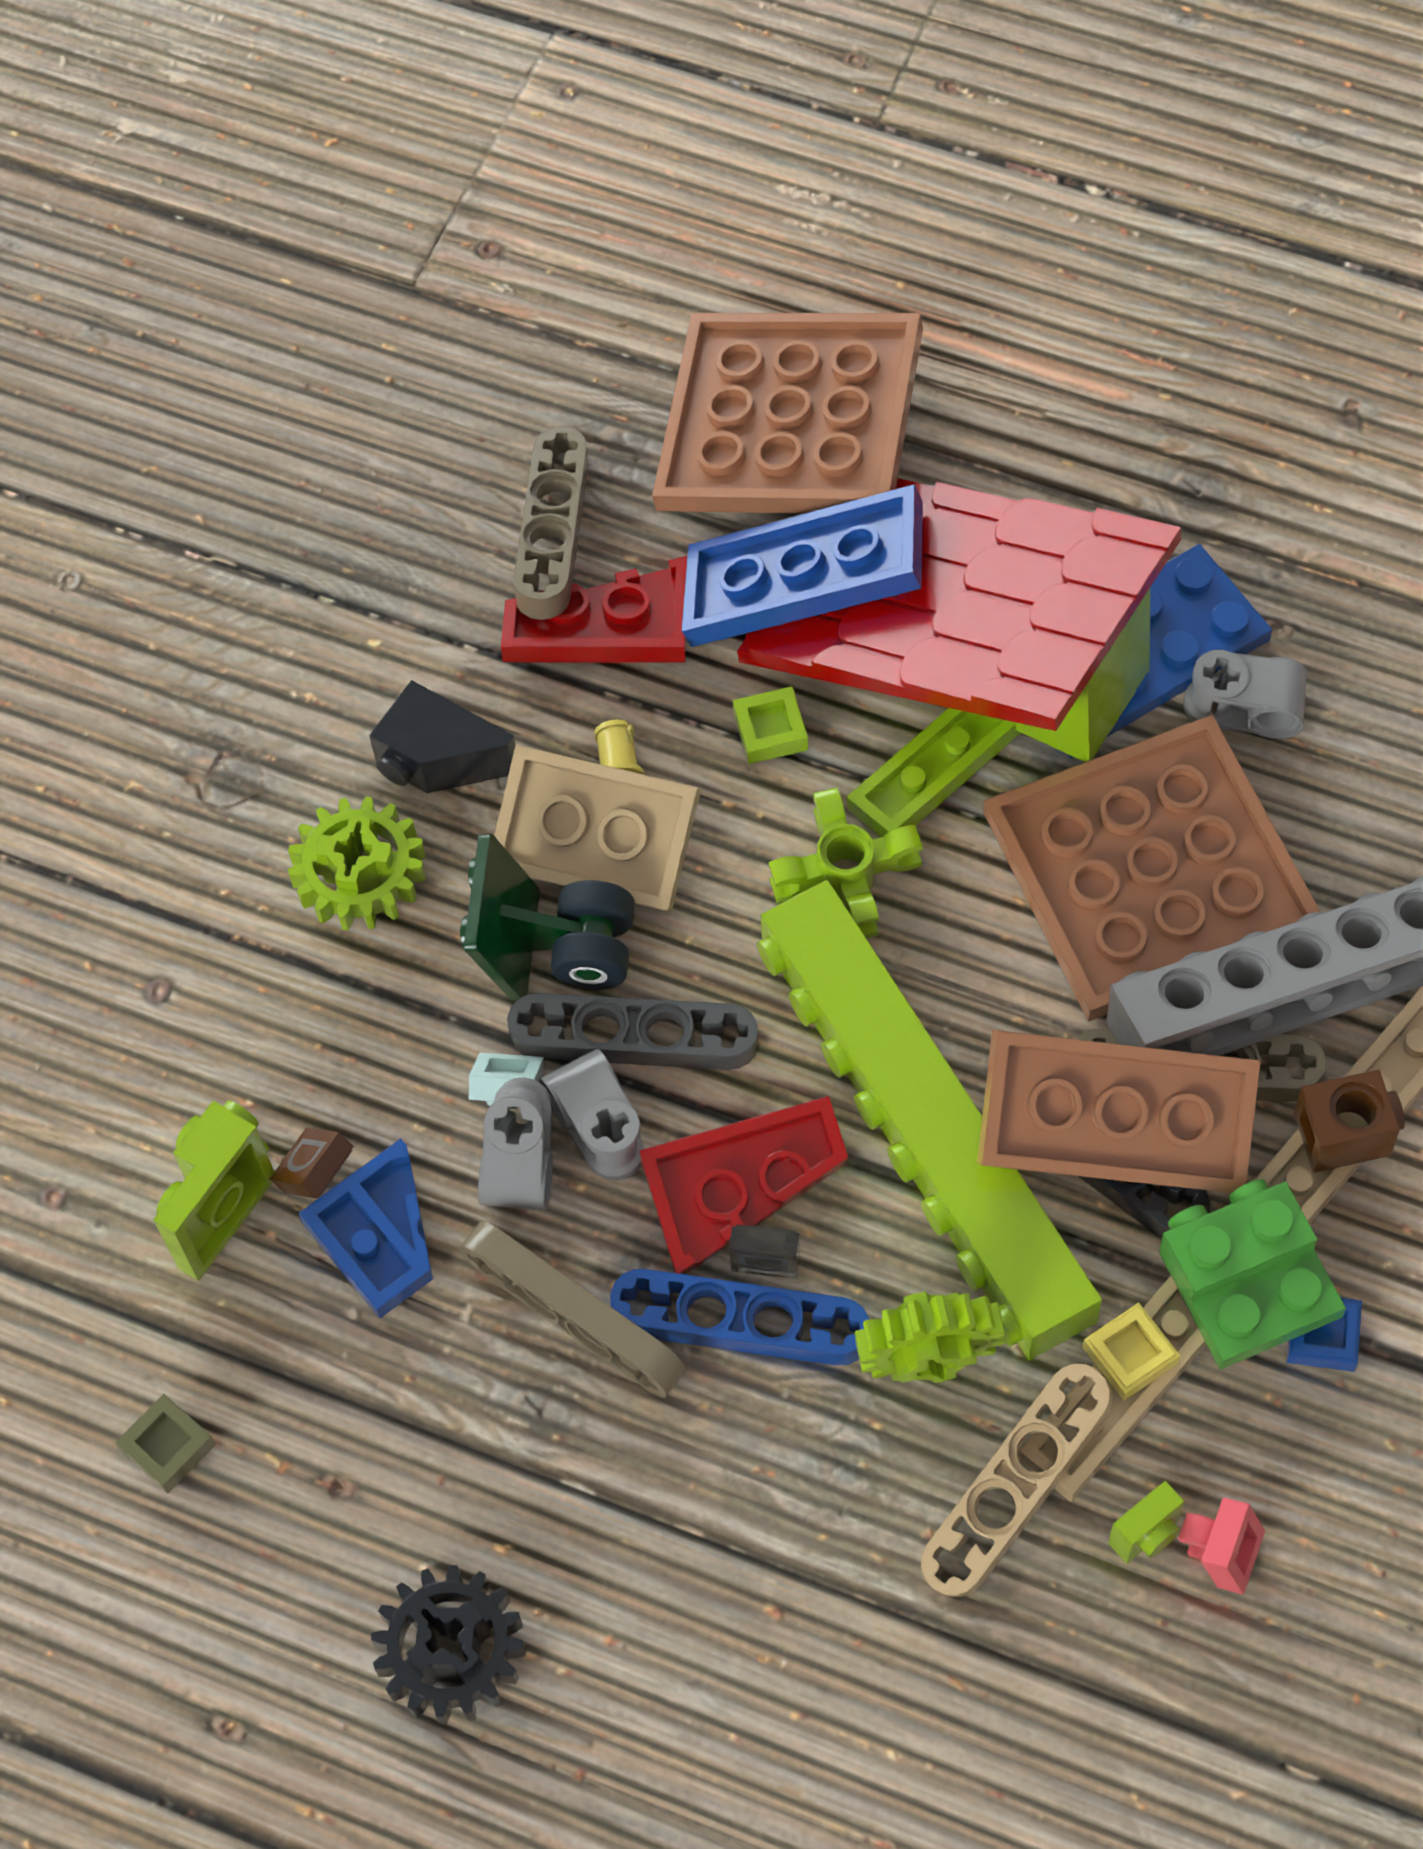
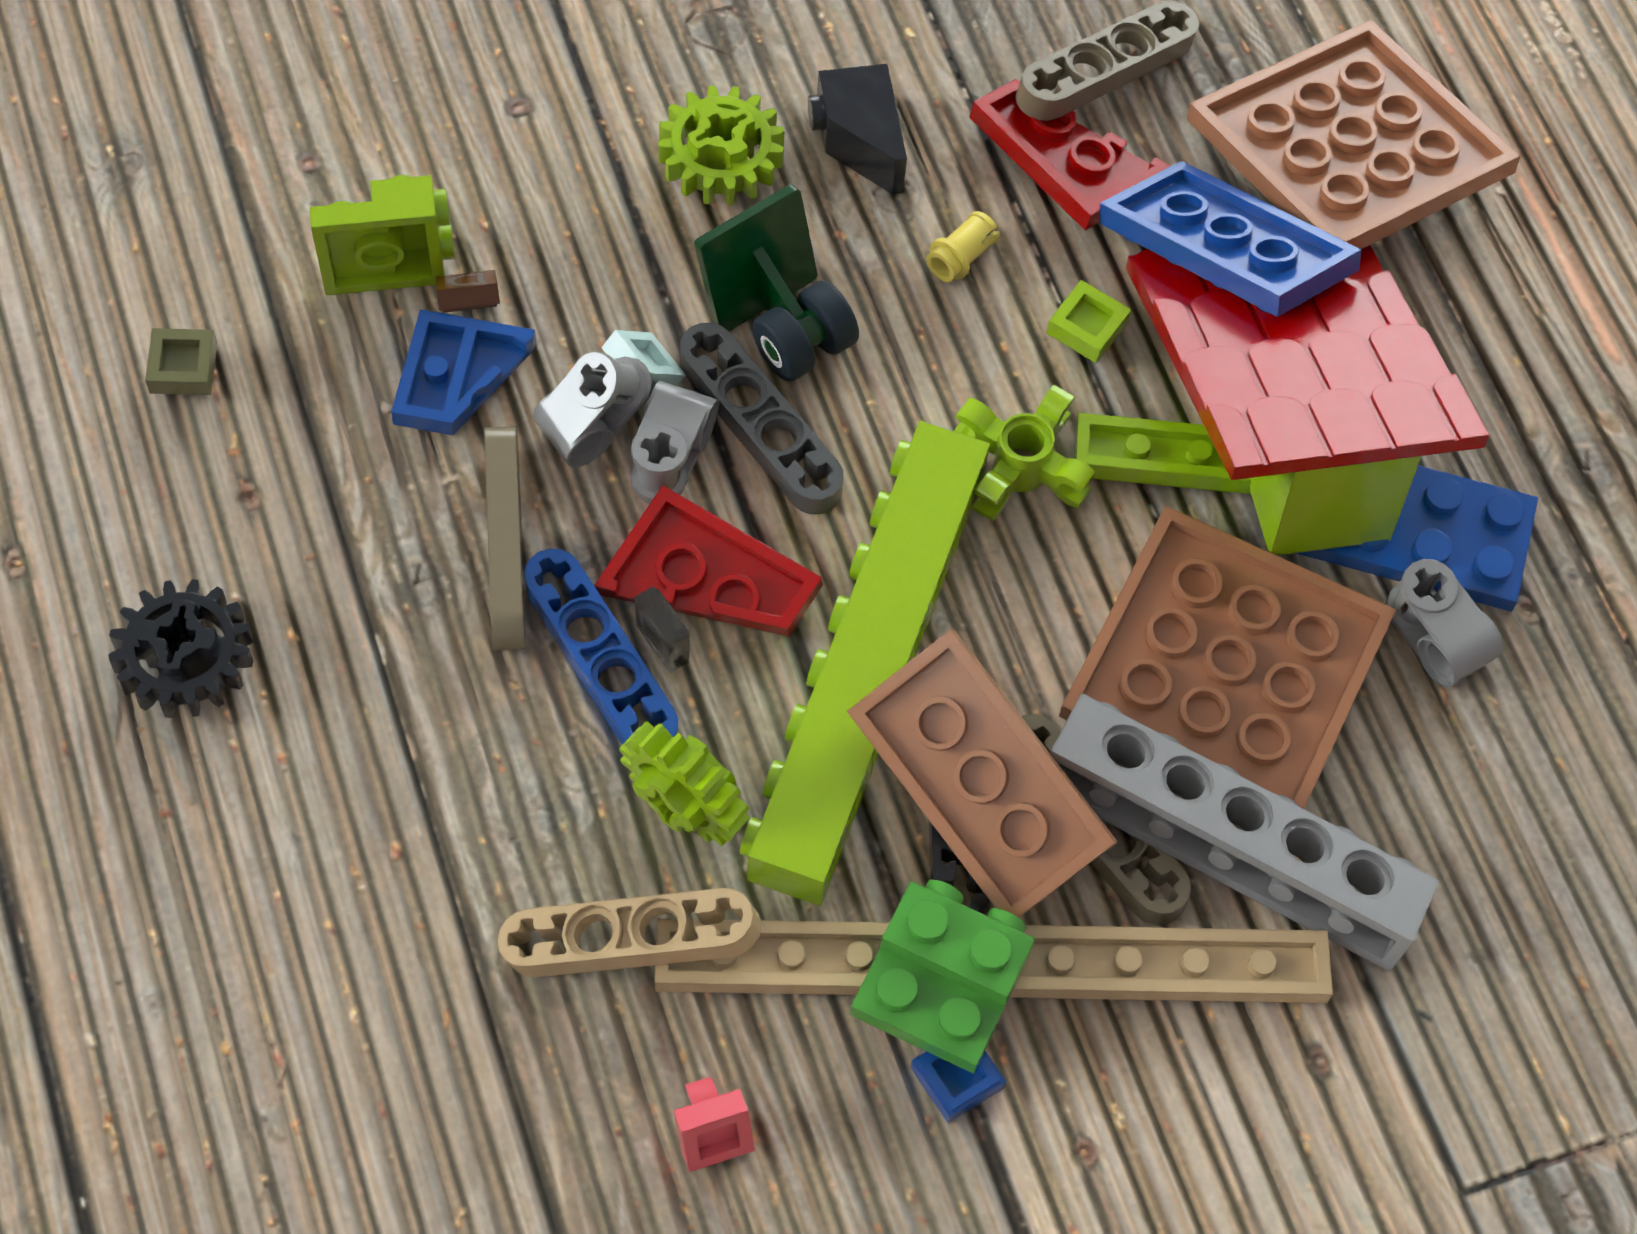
camera: 40 degrees right, 0 degrees up
(596, 823) = (891, 267): tan plate -> none
(1131, 1351) = (803, 937): light yellow tile -> none
(1148, 1524) = (678, 1054): lime plate -> none
(1332, 1142) = (1130, 923): reddish brown brick -> none

